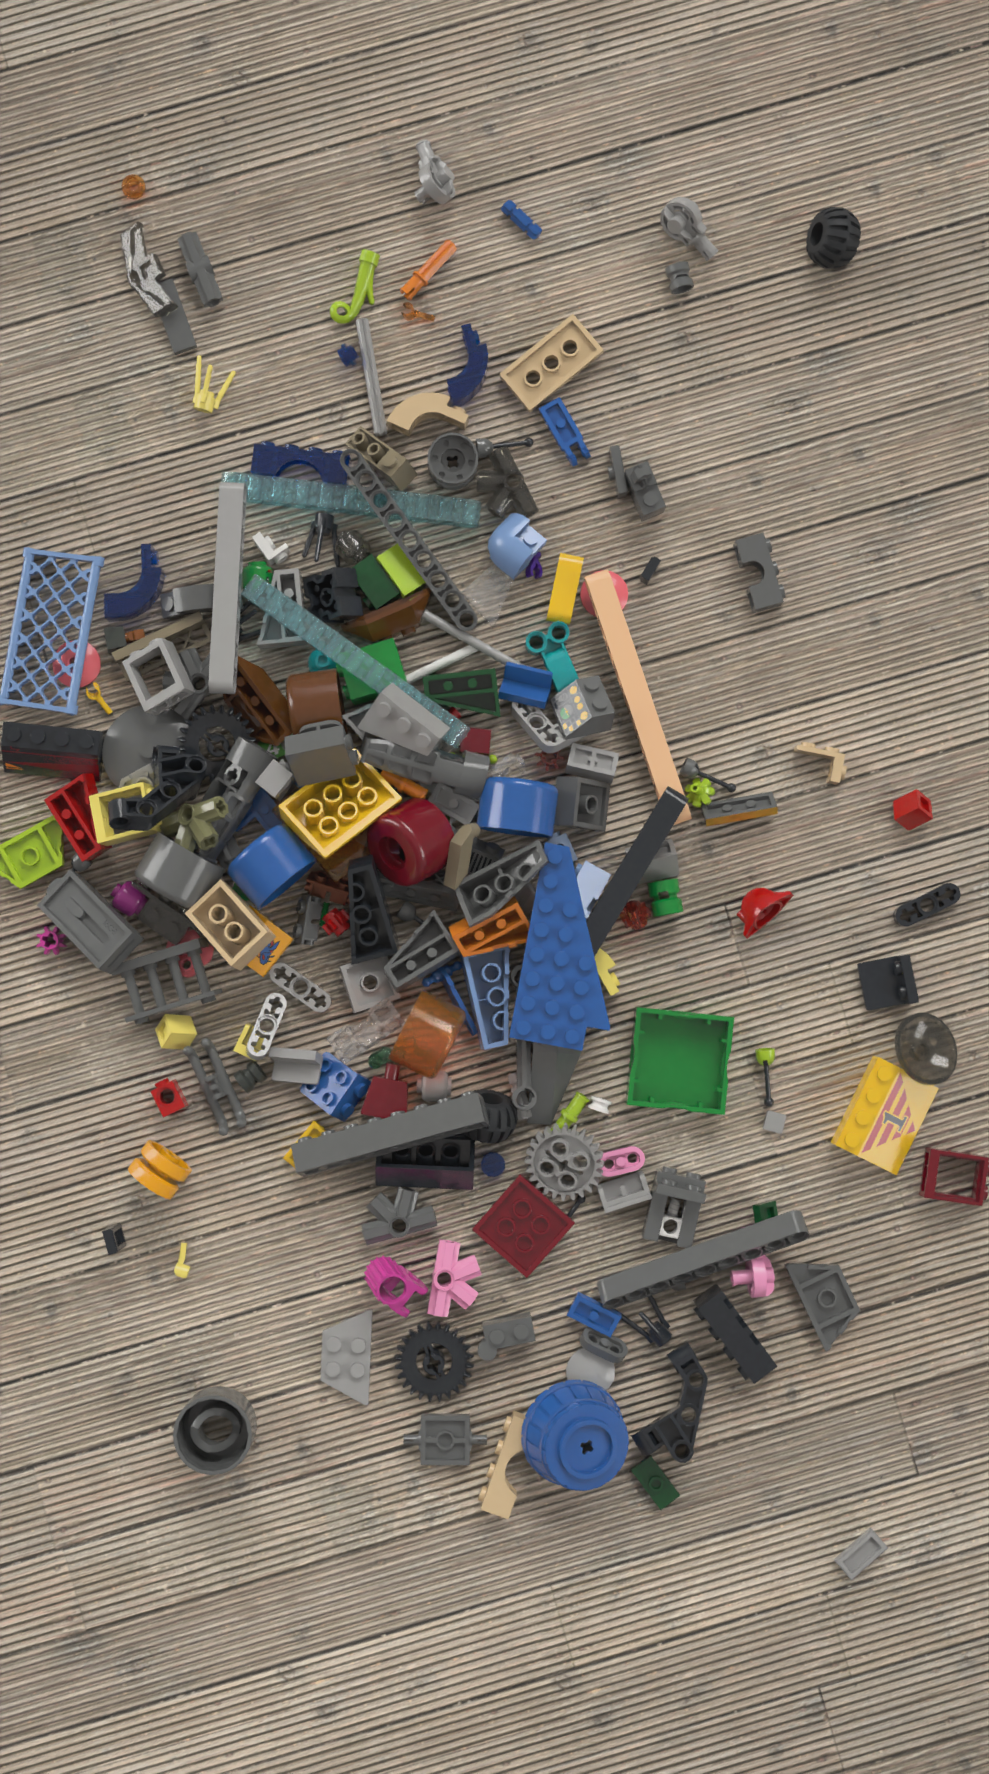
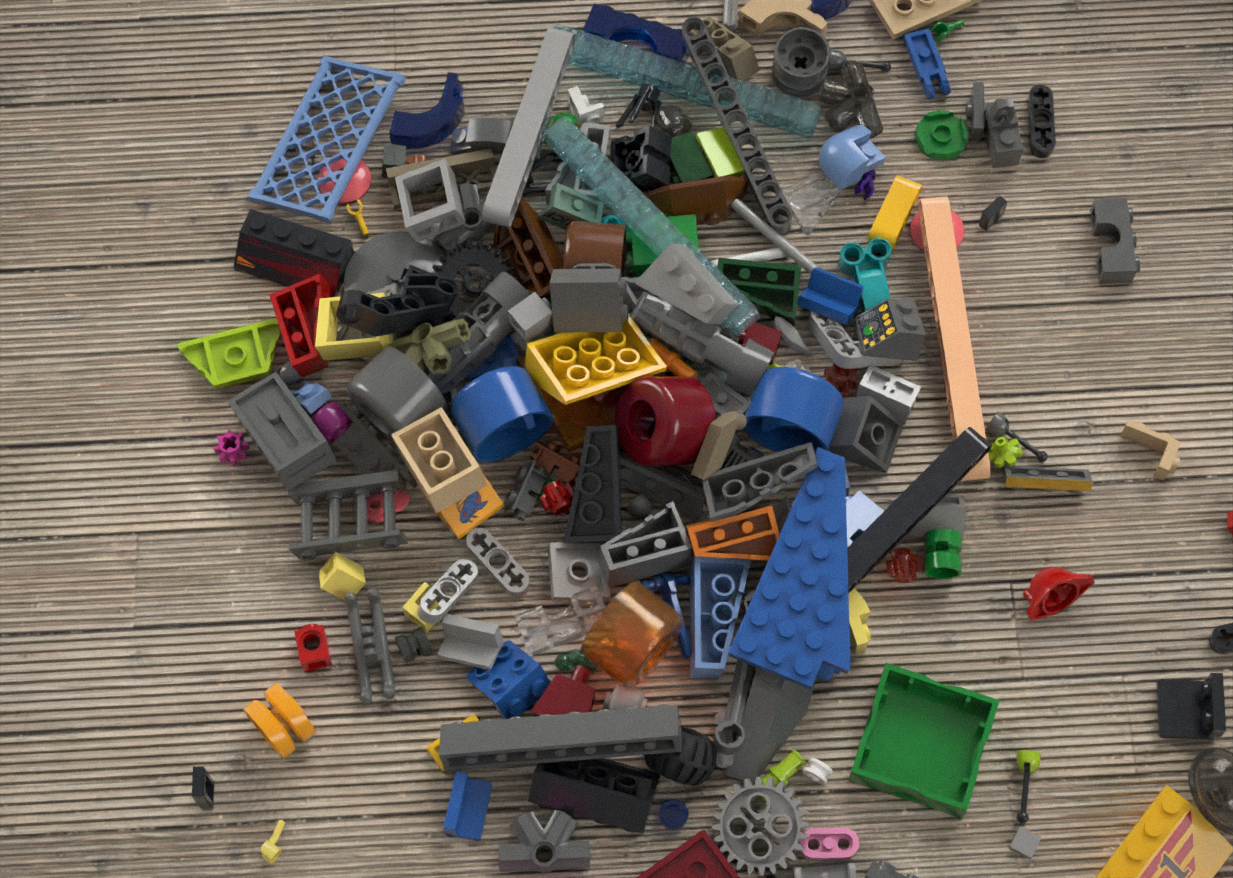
camera: 15 degrees right, 20 degrees down
(105, 881) = (311, 396): none -> medium blue plate
(285, 656) = (569, 206): none -> sand green panel
(328, 1197) = (467, 807): none -> blue panel
(497, 726) = (789, 334): none -> light grey bar
(573, 393) = (943, 29): none -> green hand
(591, 500) = (941, 135): none -> green tile
(678, 448) = (1035, 130): none -> black beam

